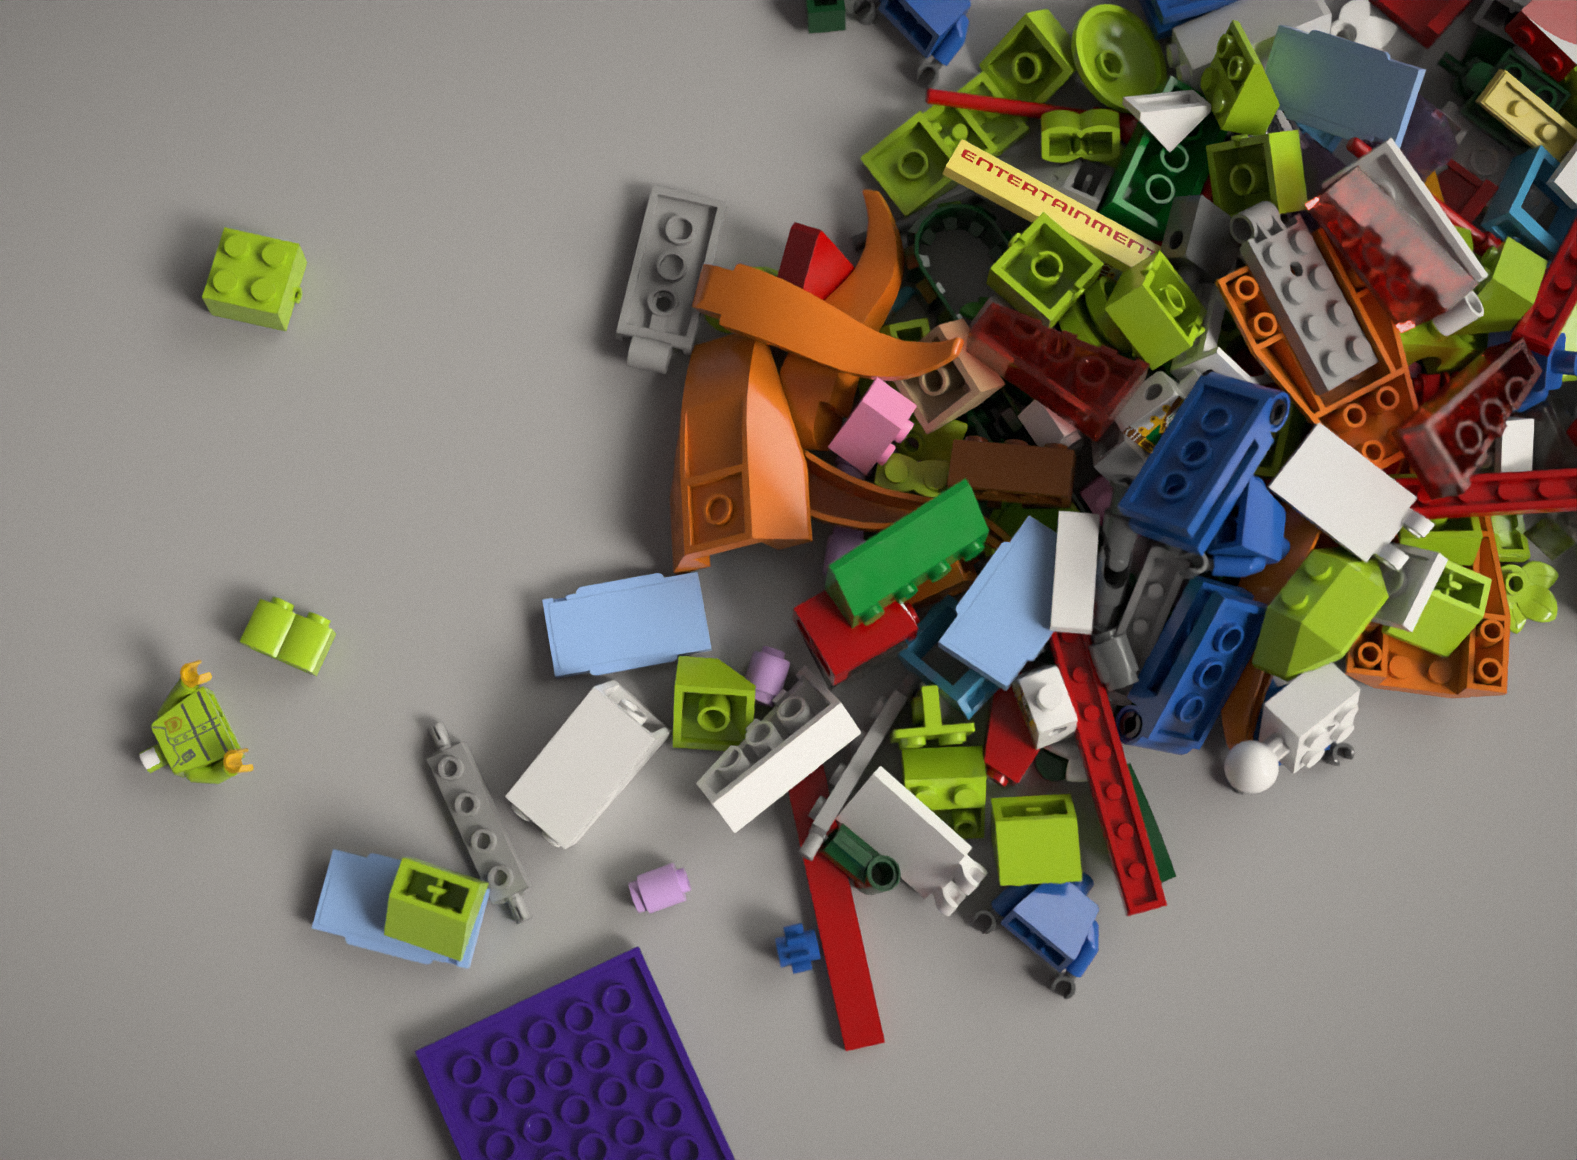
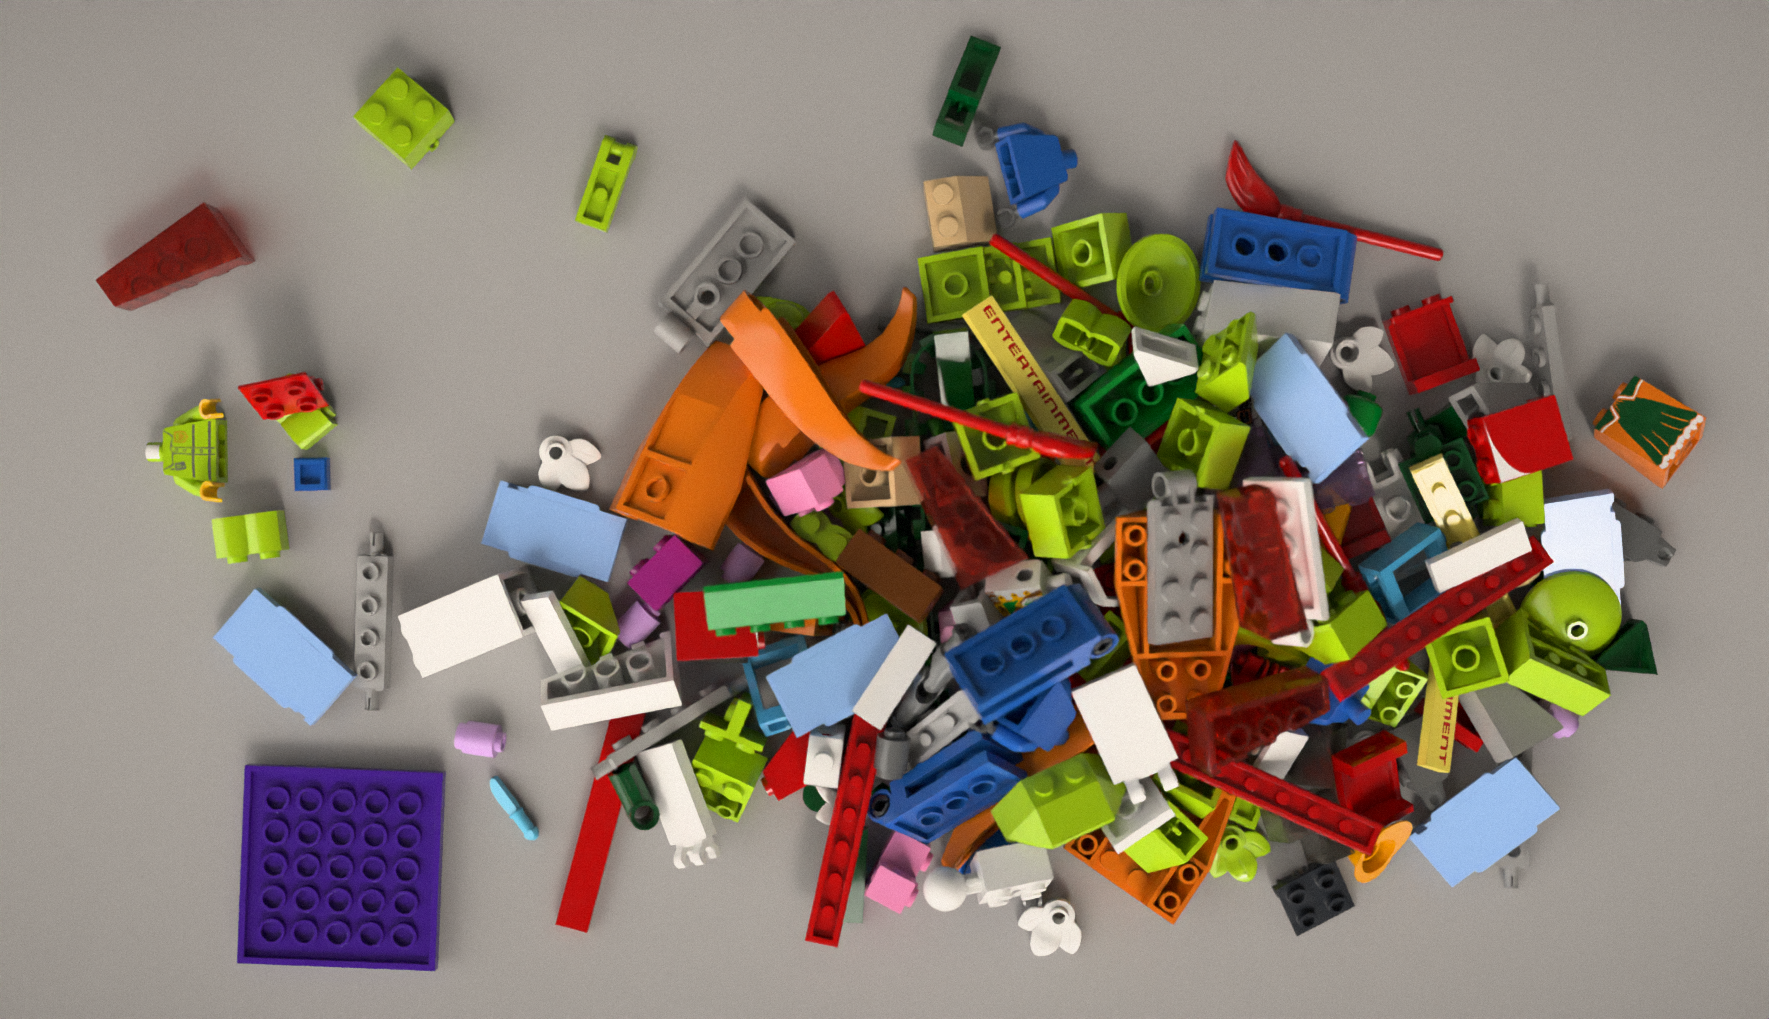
camera: 30 degrees right, 10 degrees up
(79, 544) = (176, 259): none -> clear red wedge
(269, 615) = (285, 395): none -> red hinge
(299, 796) = (250, 534): none -> lime brick
(334, 699) = (312, 474): none -> blue tile
(433, 907) = (305, 671): lime slope -> none
(499, 245) = (605, 184): none -> lime plate
(608, 551) = (570, 466): none -> white plate
(682, 723) = (554, 630): none -> white tile
(732, 948) = (513, 808): none -> medium azure piece
(773, 592) = (667, 571): none -> magenta brick
(797, 948) = (557, 834): blue gear -> none
(875, 93) = (959, 212): none -> tan slope
(962, 242) = (954, 370): none -> dark green tile
(1035, 839) = (768, 849): lime slope -> none
(1053, 922) = (751, 911): torso -> none
(1071, 249) = (1021, 436): none -> red piece
(1182, 791) = (895, 872): none -> bright pink brick
(1381, 779) = (1052, 932): none -> white plate

